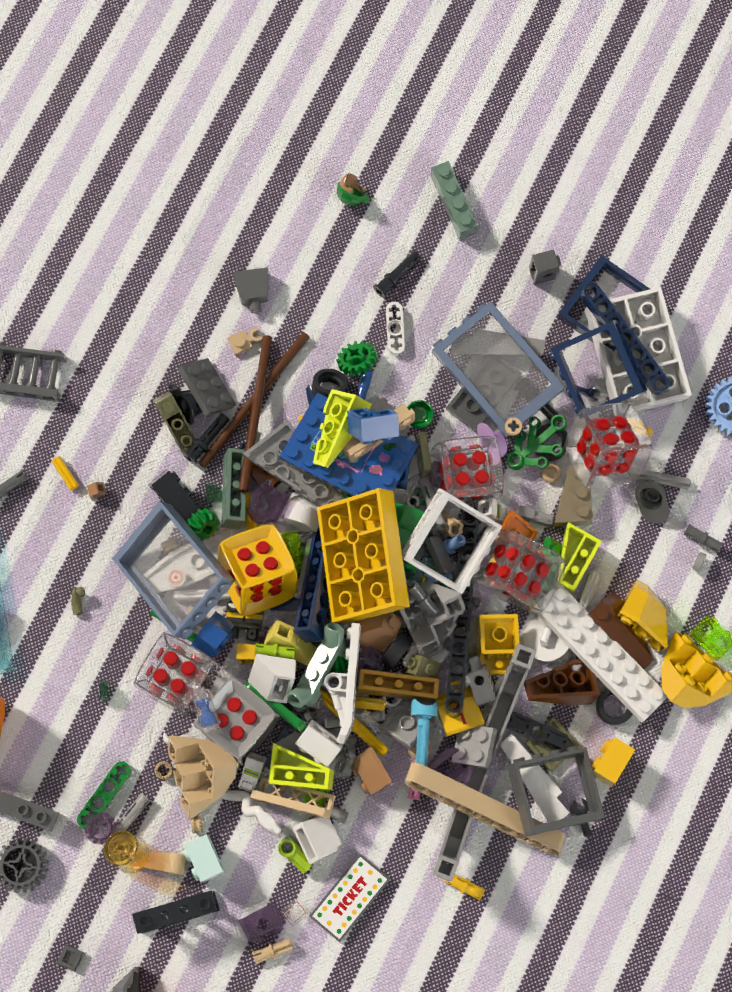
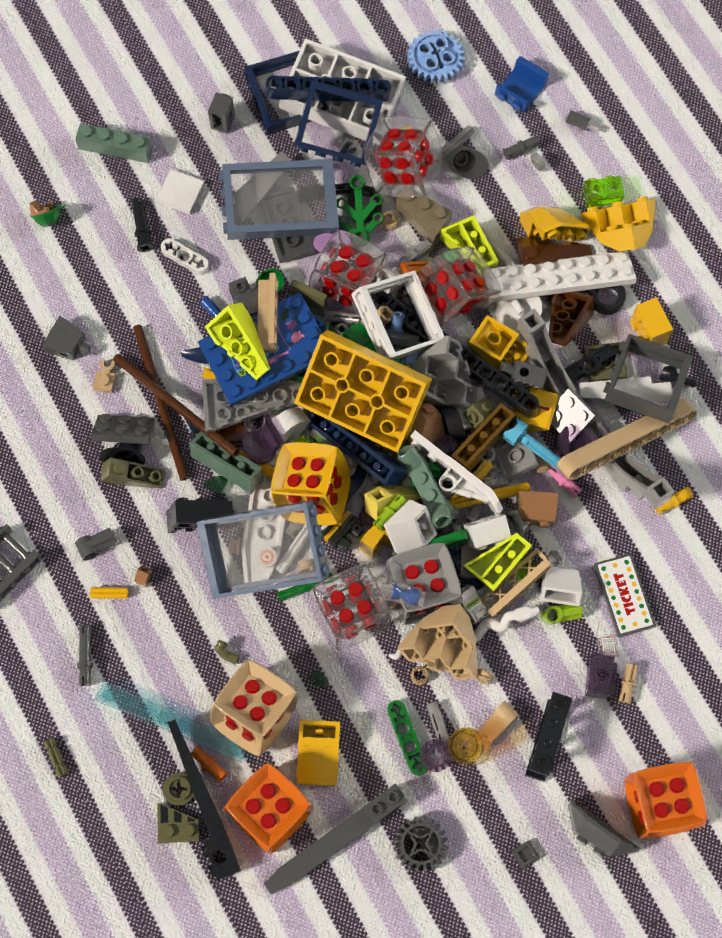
camera: 55 degrees left, 5 degrees down
(38, 654) = (253, 707): none -> tan piece
(42, 731) = (318, 752): none -> yellow slope
(93, 431) = (90, 546): none -> dark grey piece
(201, 445) = (167, 466): black pin -> none
(204, 523) = (238, 501): green gear -> none
(204, 859) = (518, 686): light aqua brick -> none
(213, 634) = (339, 554): blue brick -> none
(328, 375) = (189, 327): black tyre -> none
(357, 358) = (188, 299): green gear -> none
(373, 425) = (263, 308): brick -> none
(395, 394) = (238, 287): none -> dark grey brick
(422, 598) = (430, 368): dark grey pin -> none
(451, 284) = (180, 191): none -> white tile
(517, 430) = (335, 210): tan bush -> none

